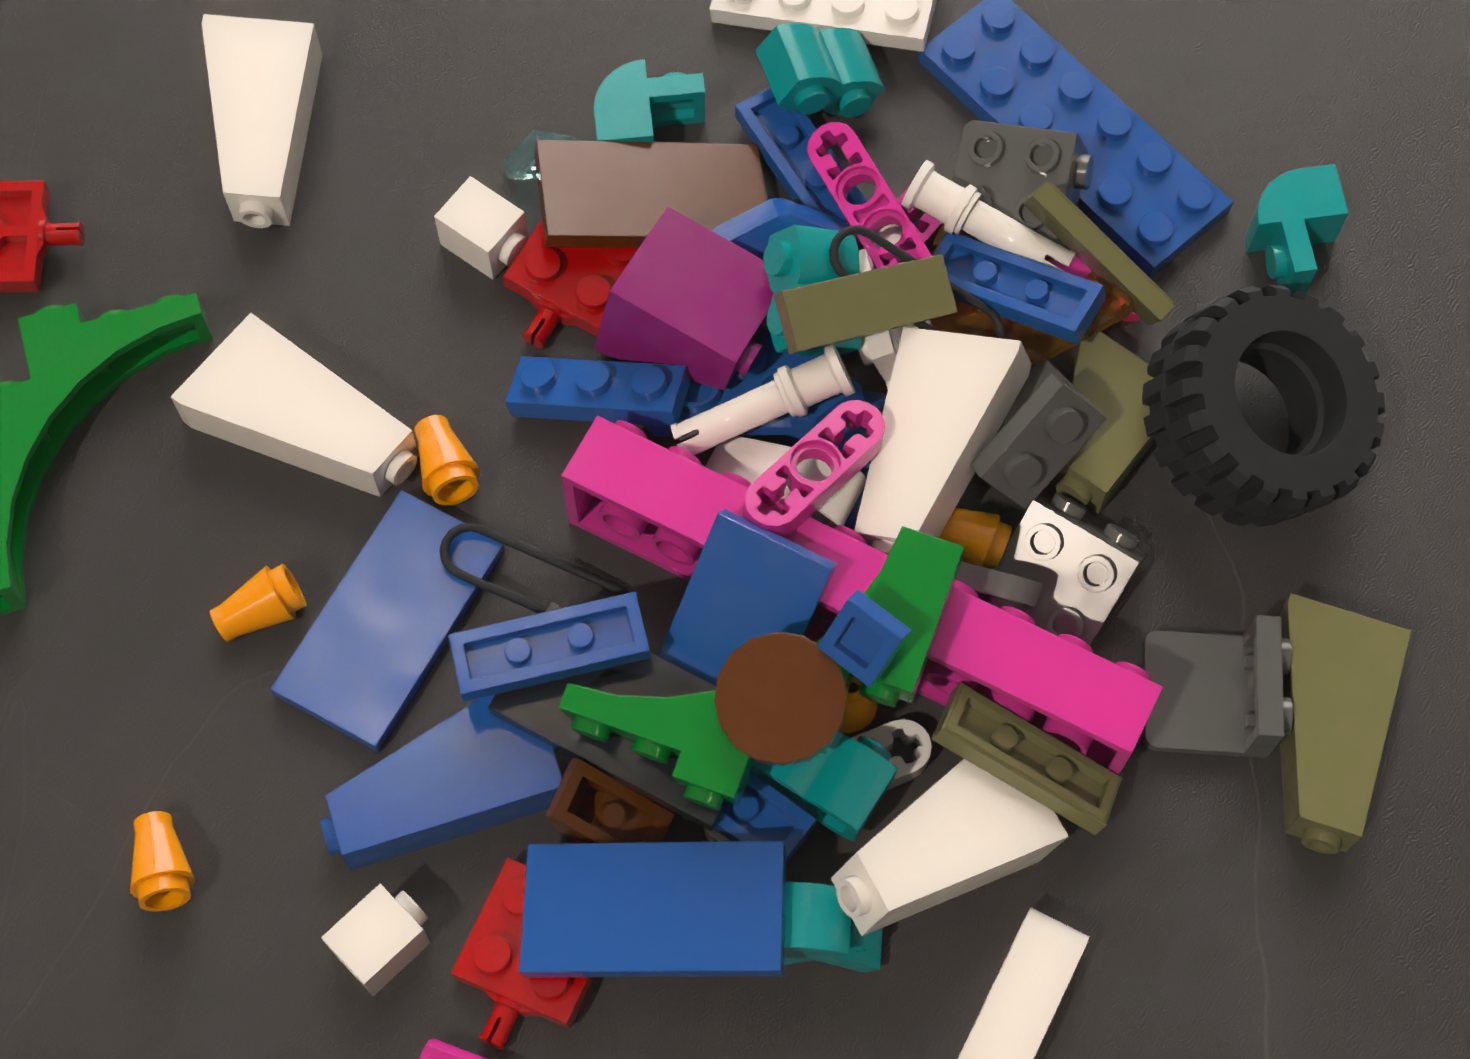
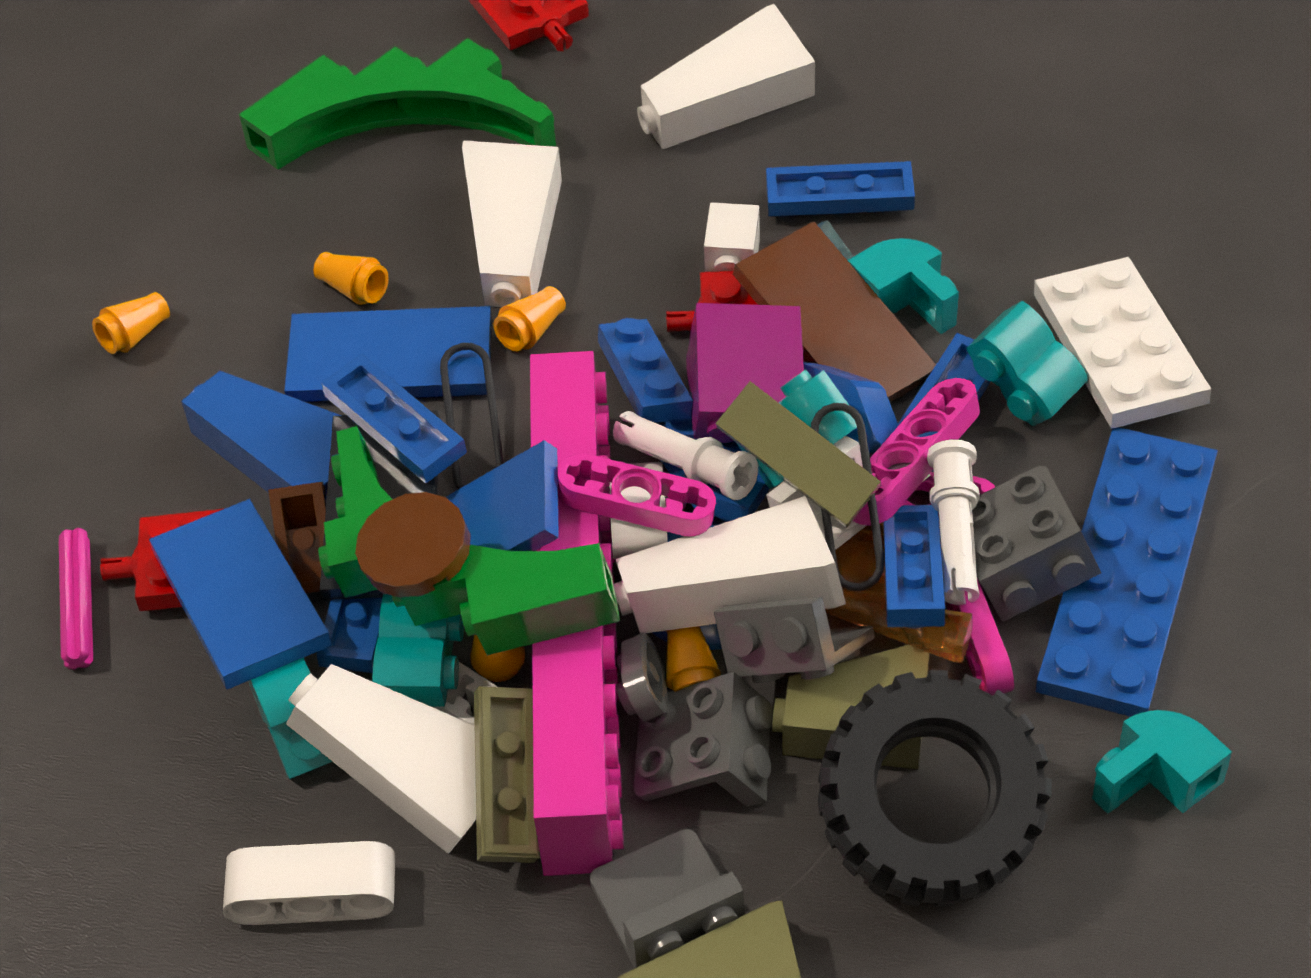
camera: 65 degrees right, 15 degrees down
(379, 937) = (139, 462): white brick -> none
(476, 100) = (840, 188): none -> blue plate
(864, 638) = (480, 556): blue tile -> none
(1098, 251) = (983, 599): olive tile -> none

